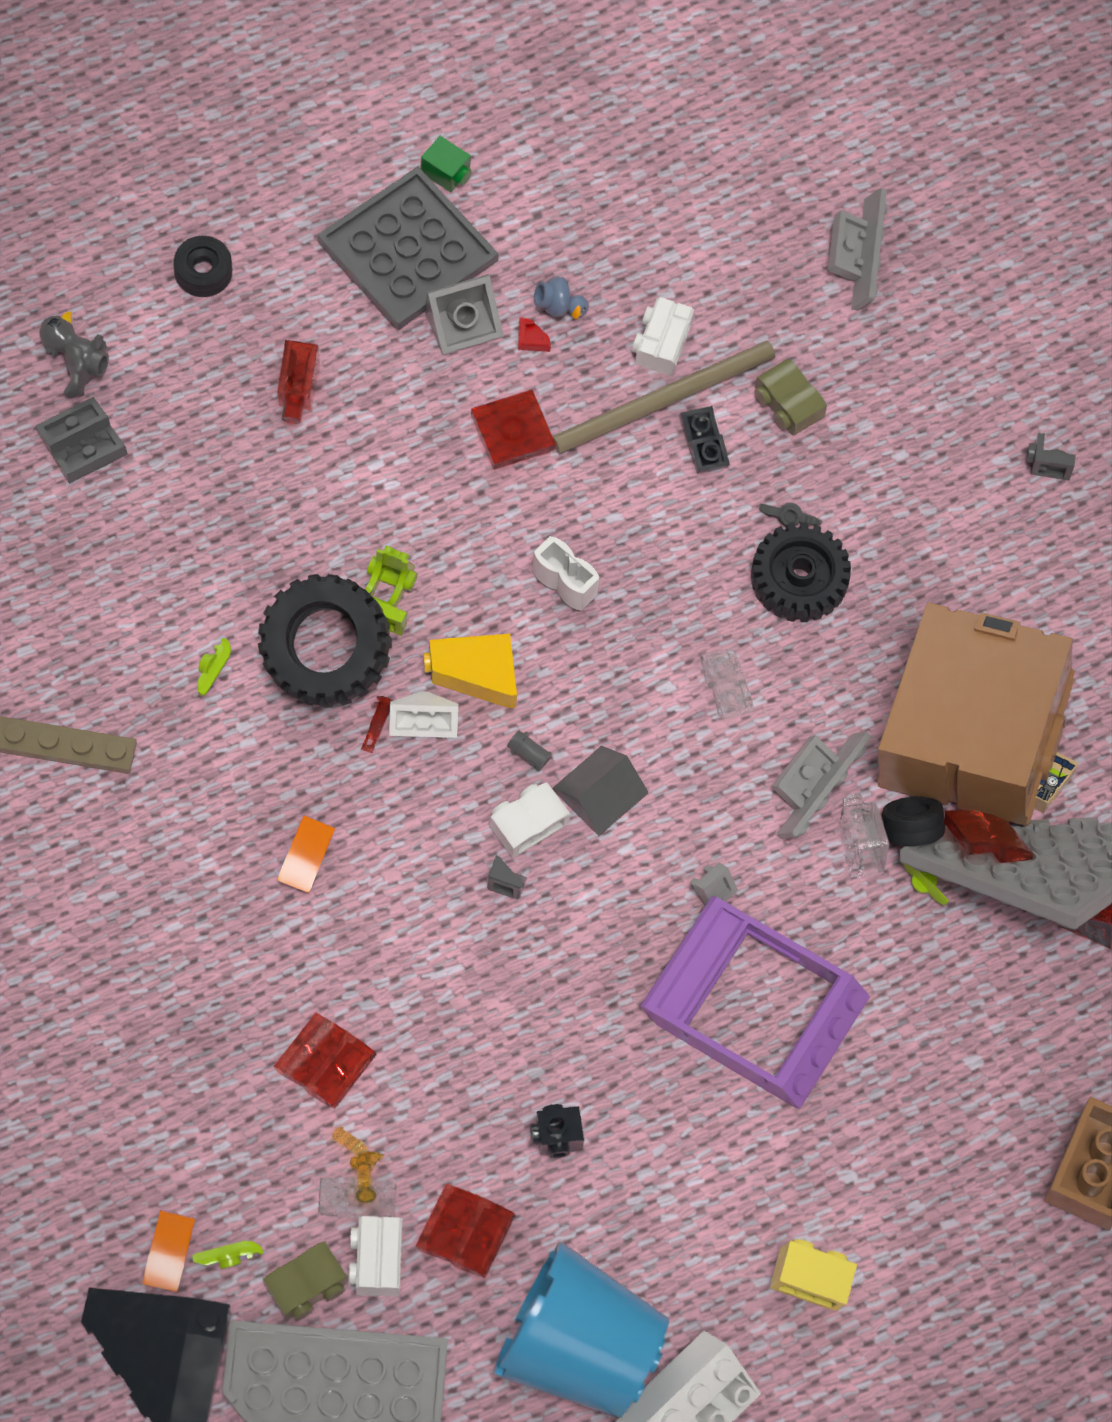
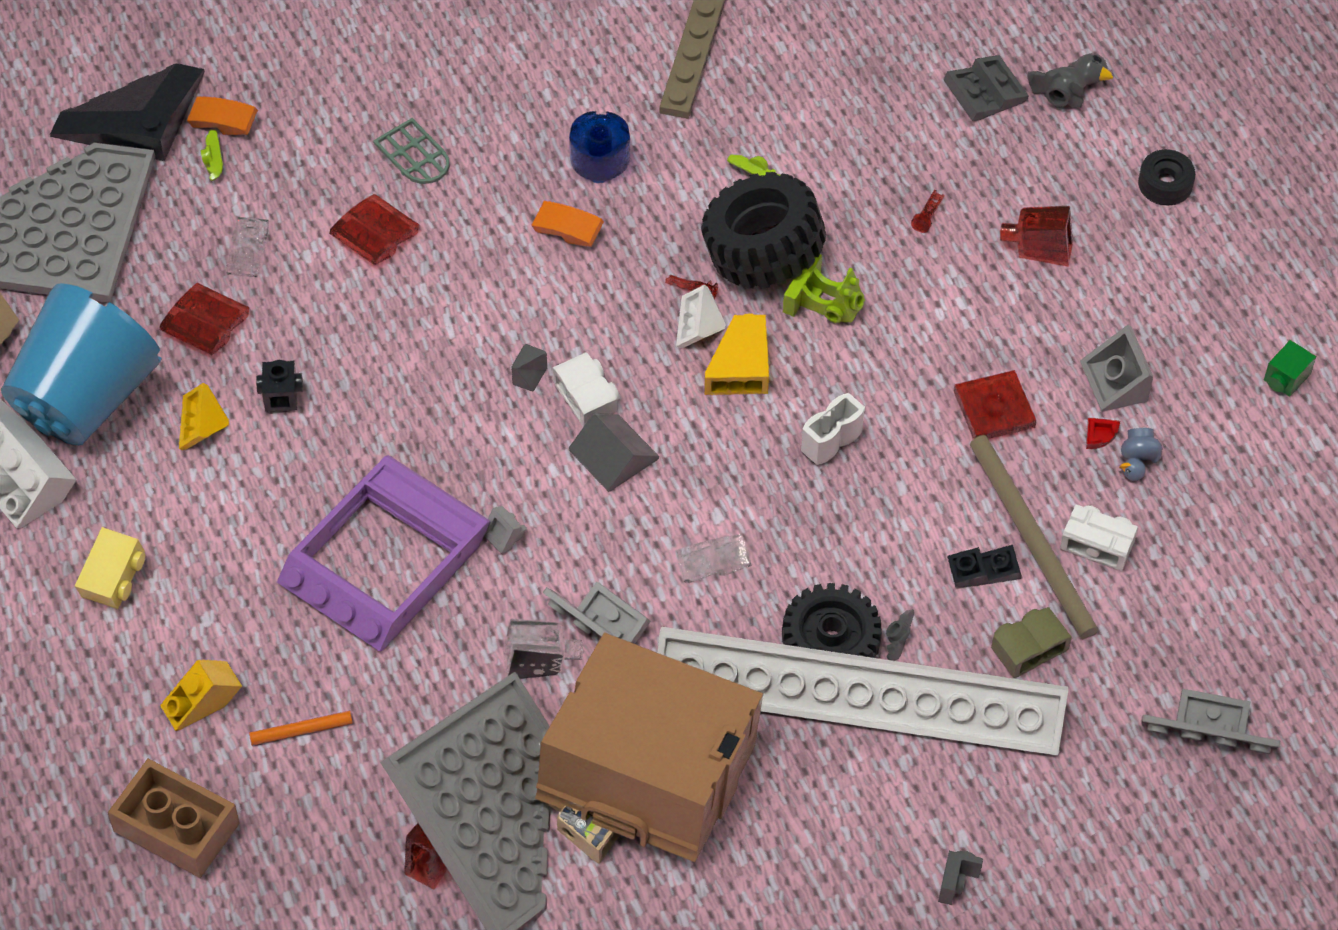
camera: 100 degrees right, 10 degrees down
(191, 1032) = (414, 143): none -> sand green window
(200, 806) = (599, 146): none -> clear blue brick
(273, 499) = (922, 221): none -> clear red piece
(306, 1281) = (179, 204): olive brick -> none
(363, 1162) = (279, 252): clear yellow piece -> none
(377, 1256) = (190, 253): white brick -> none
(407, 245) = (1197, 335): dark grey plate -> none
(529, 750) = (656, 396): dark grey pin -> none
(601, 1217) = (200, 416): none -> yellow slope
(871, 545) = (881, 691): none -> white plate
(913, 821) = (544, 691): black tyre -> none
(949, 1162) = (201, 692): none -> yellow slope
(967, 1064) = (300, 728): none -> orange bar
(987, 833) = (514, 742): clear red slope -> none

